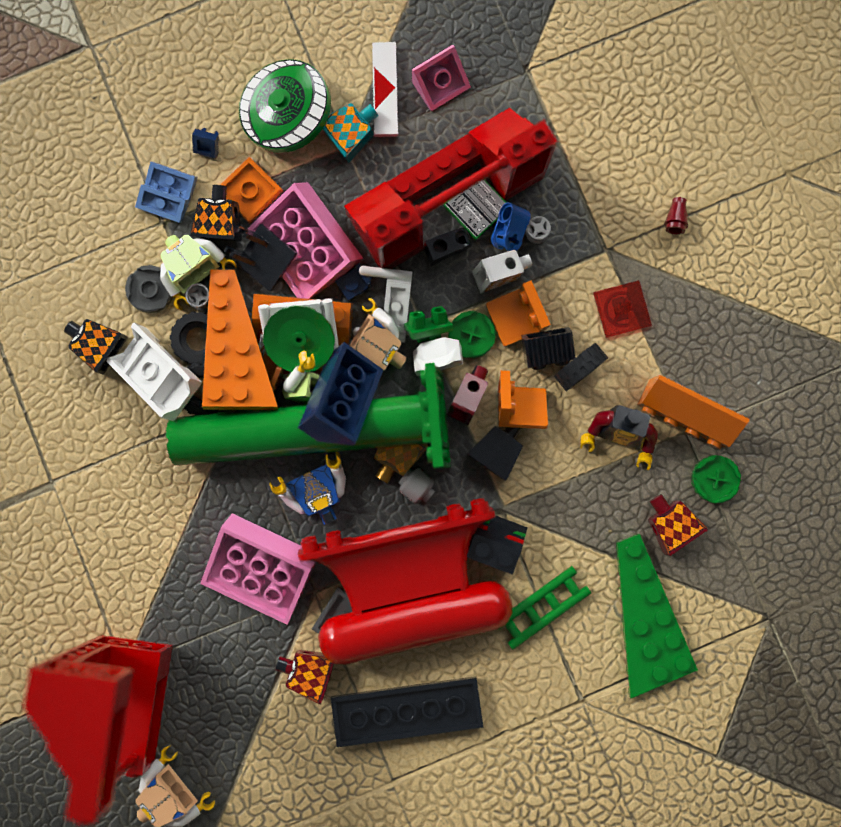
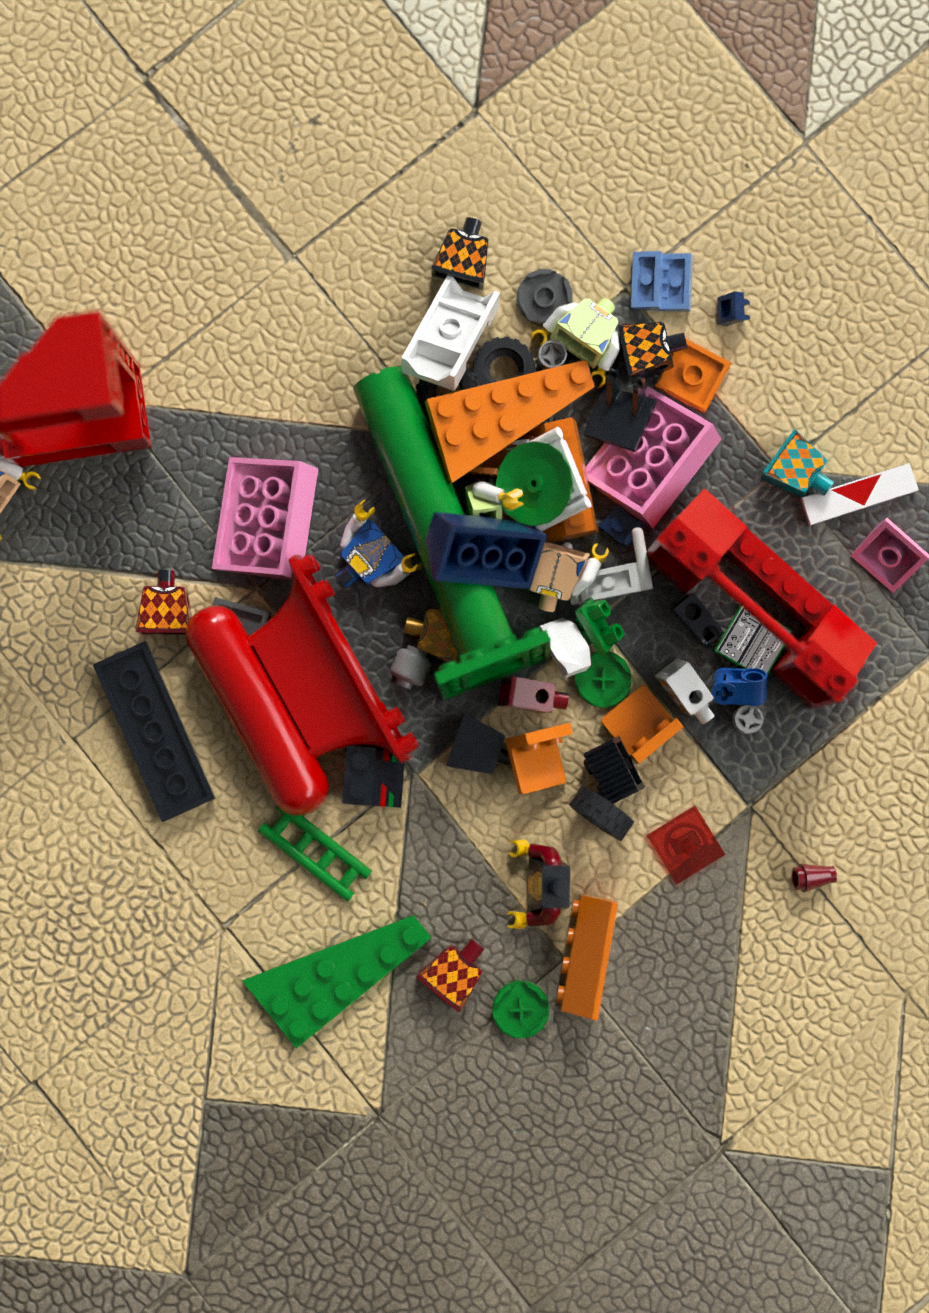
camera: 65 degrees right, 0 degrees up
(285, 106) = (802, 385): dish -> none

